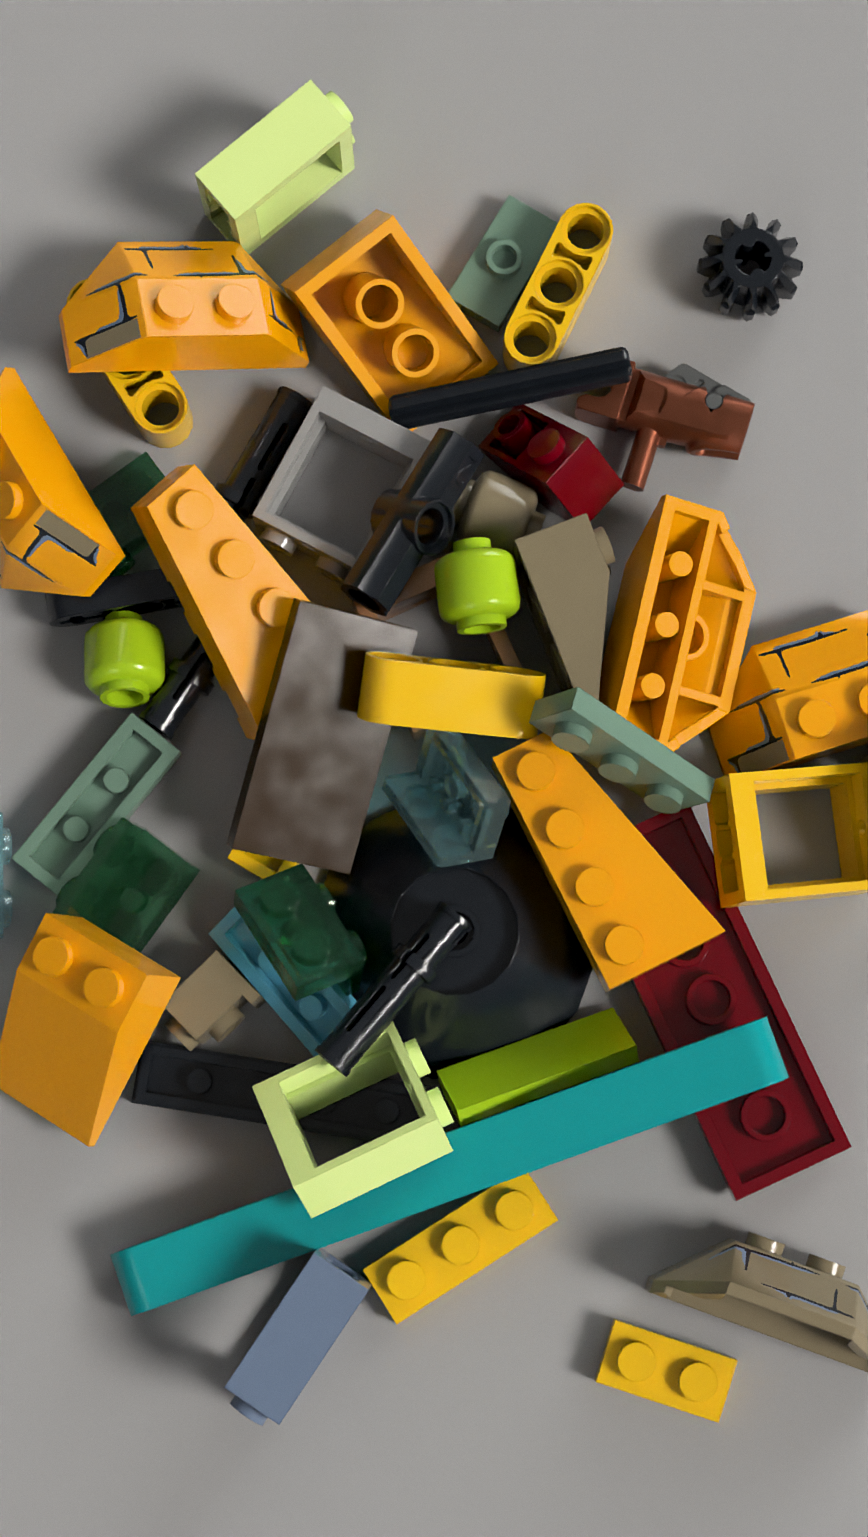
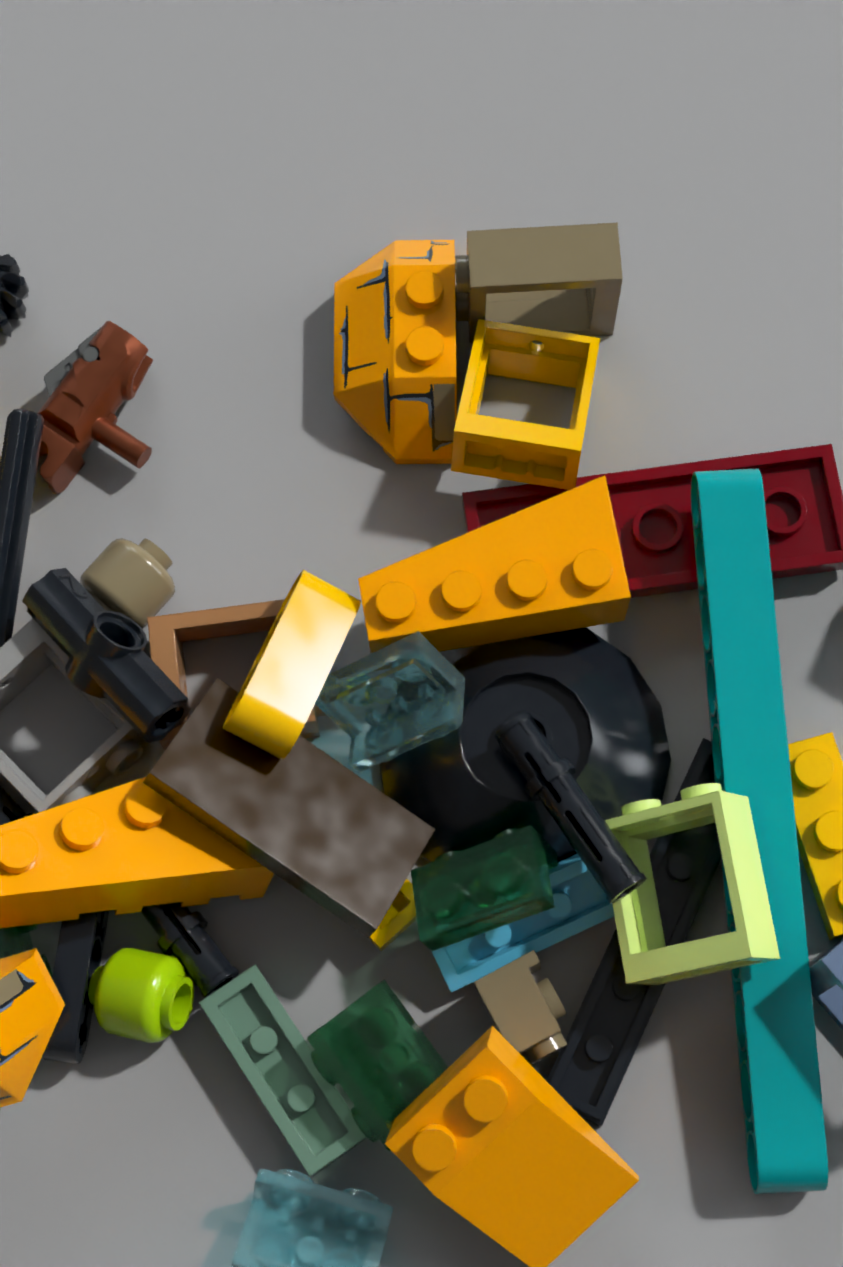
camera: 70 degrees left, 10 degrees down
(477, 587) = (193, 608): lime head -> none
(537, 1066) = (678, 701): lime tile -> none
(554, 460) = (94, 510): dark red slope -> none
(566, 590) = (242, 538): dark tan slope -> none
(621, 751) = (399, 519): sand green plate -> none
(678, 624) = (294, 454): light orange wedge -> none

